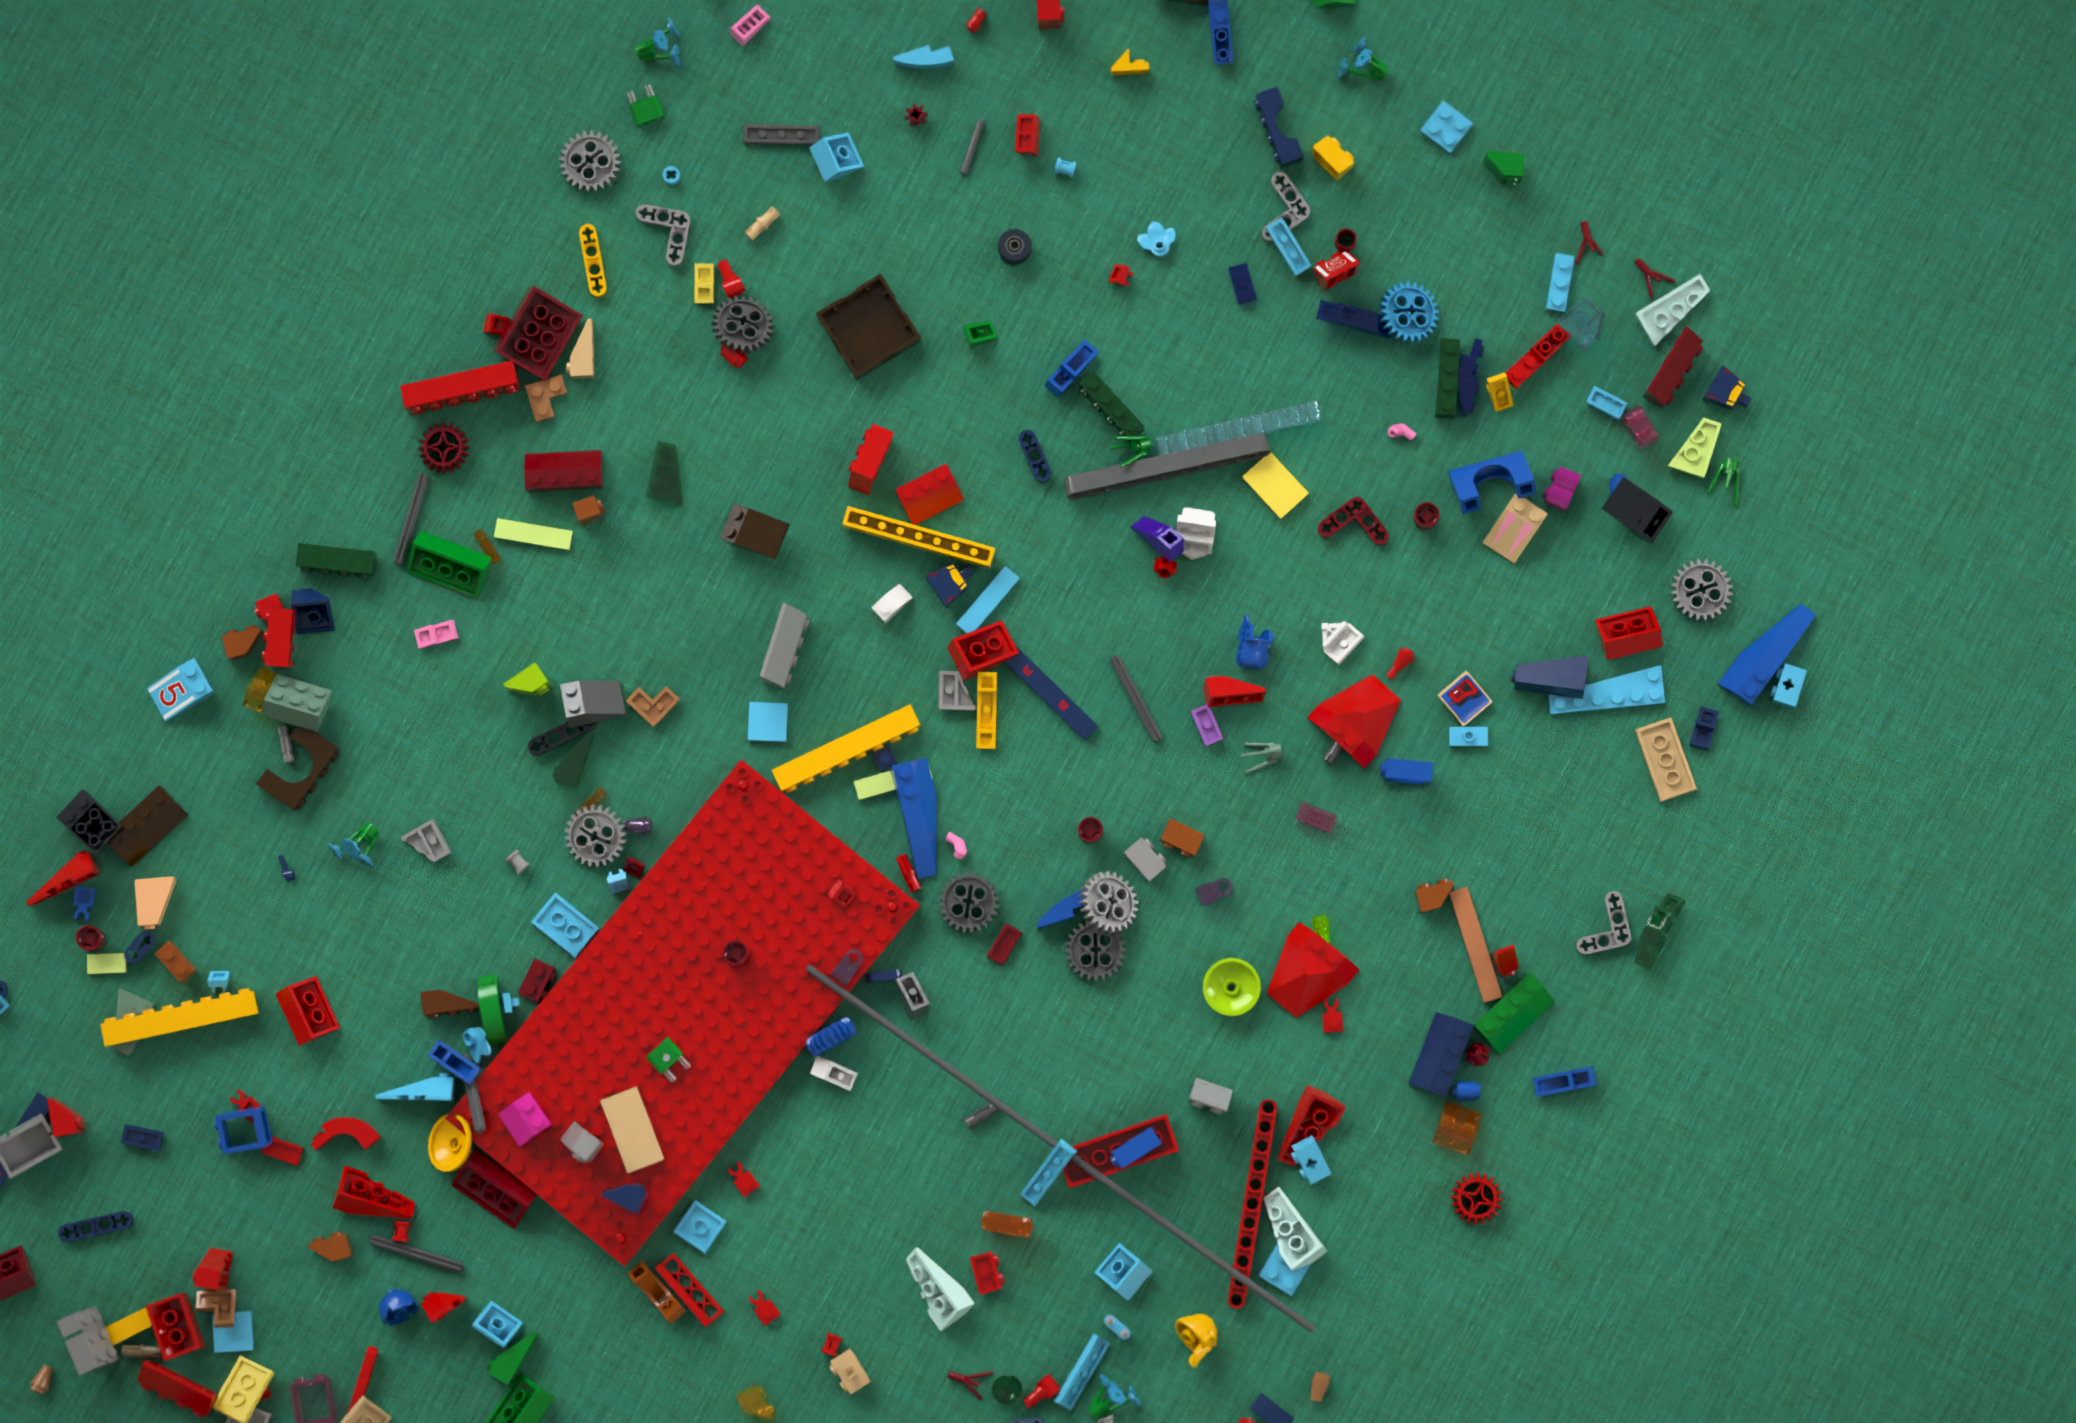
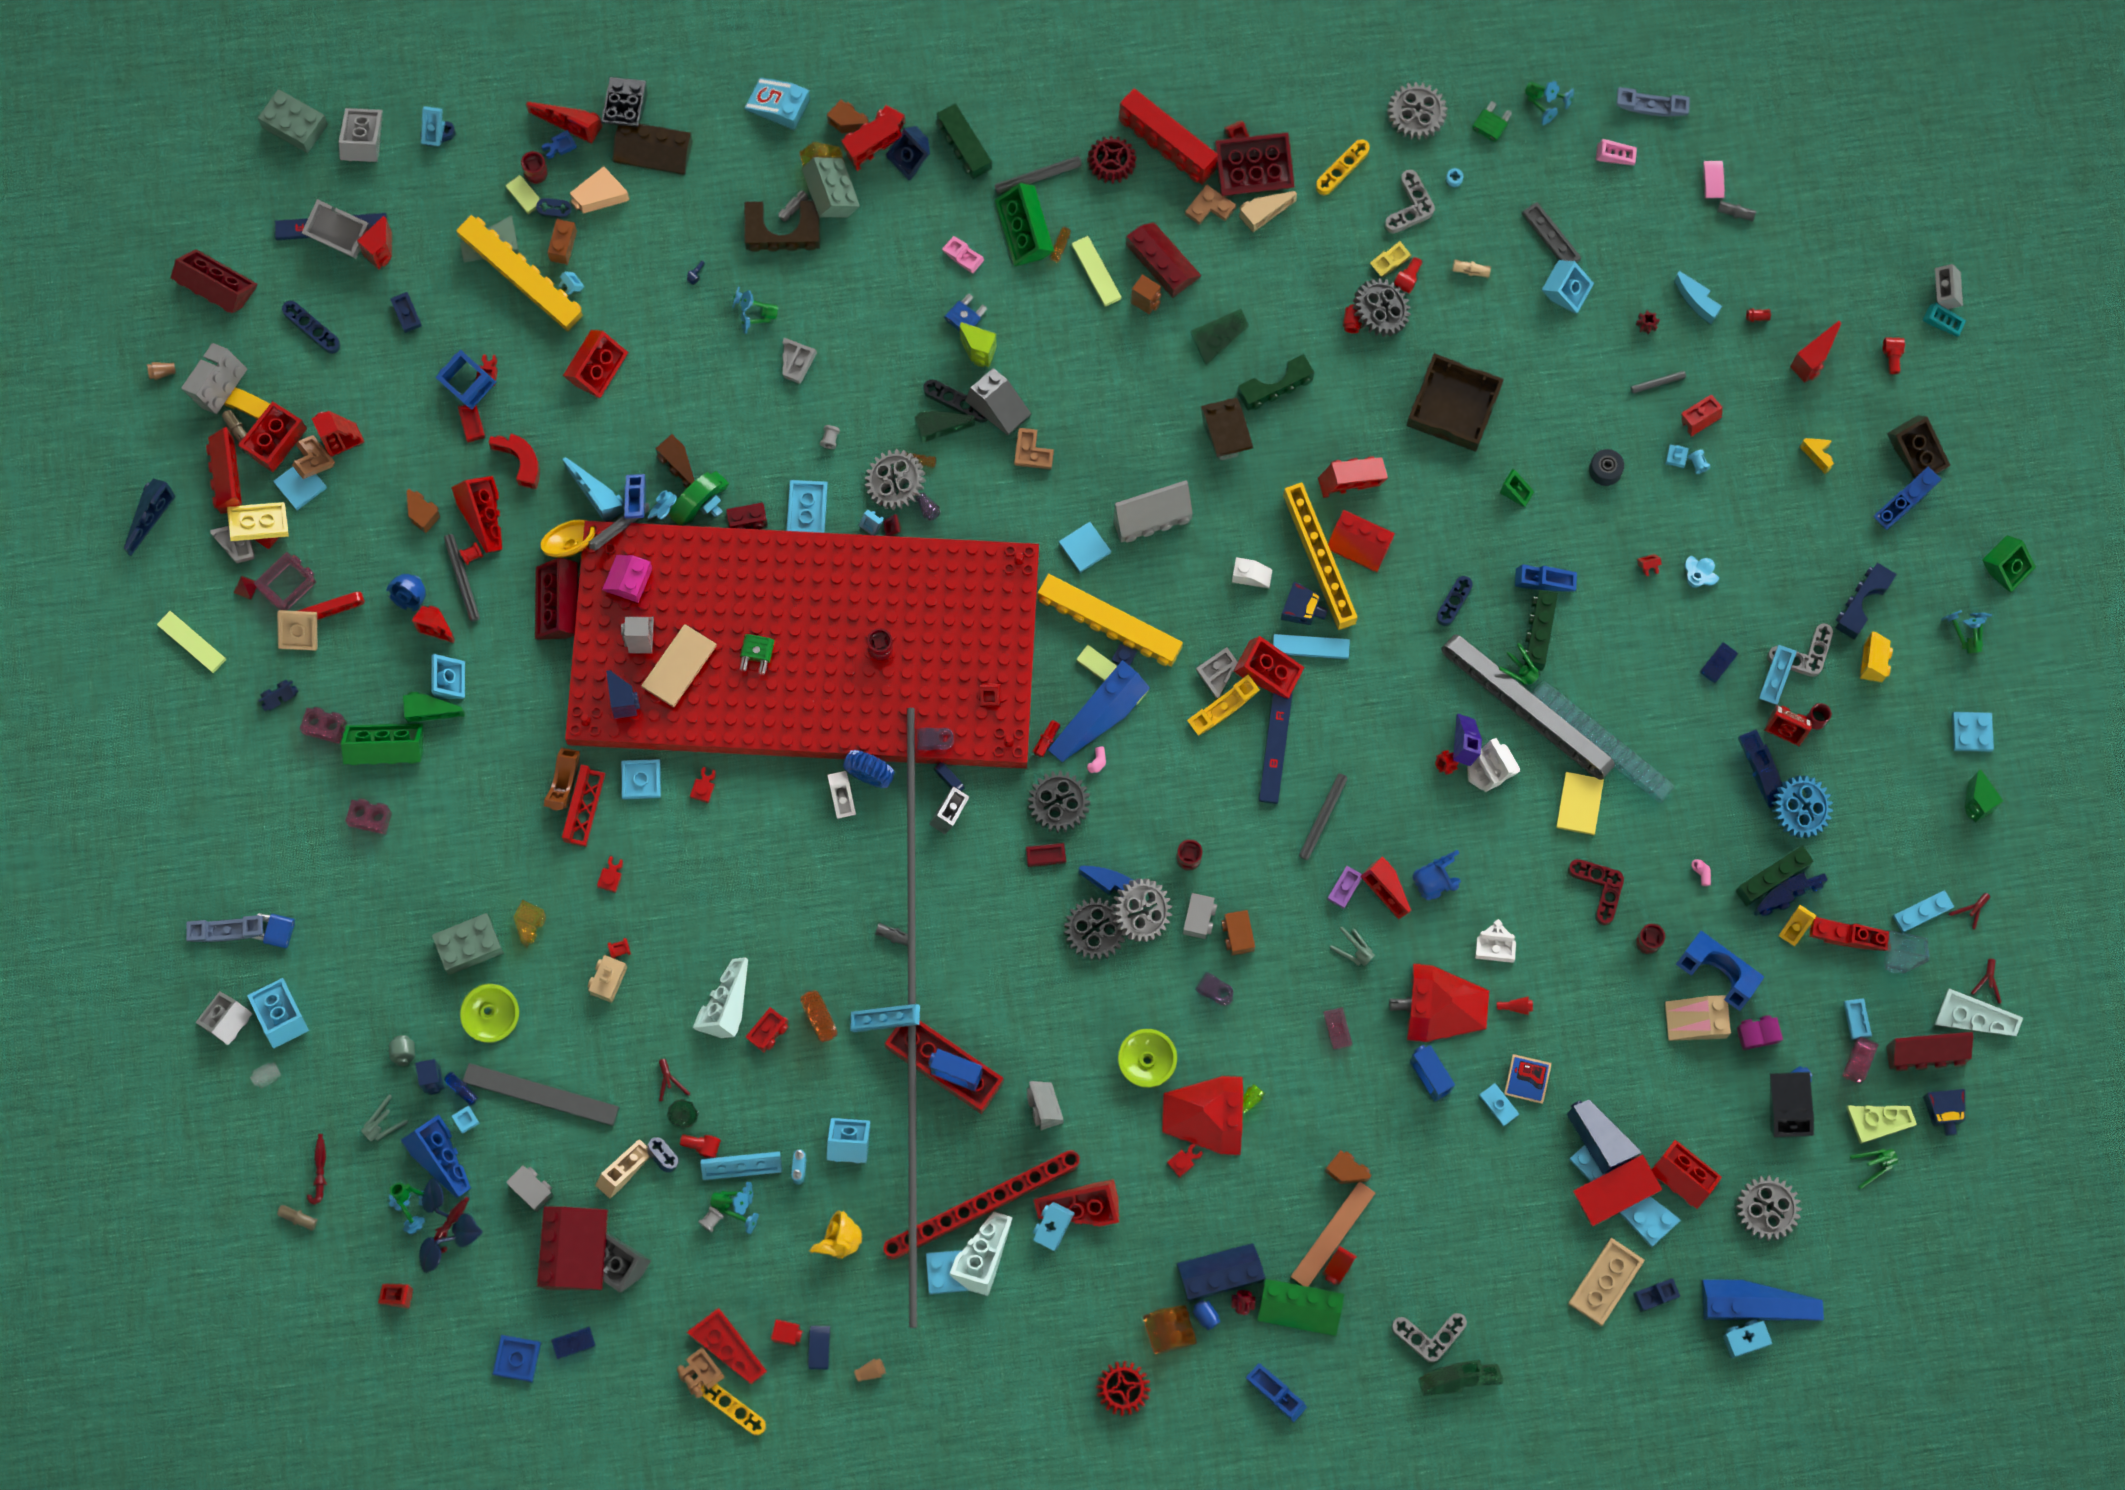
camera: 50 degrees right, 10 degrees down
(491, 675) = (962, 313): none -> blue piece
(739, 484) = (1255, 393): none -> dark green arch
(1046, 181) = (1676, 456): none -> medium azure tile
(1603, 697) = (1617, 1190): none -> red tile

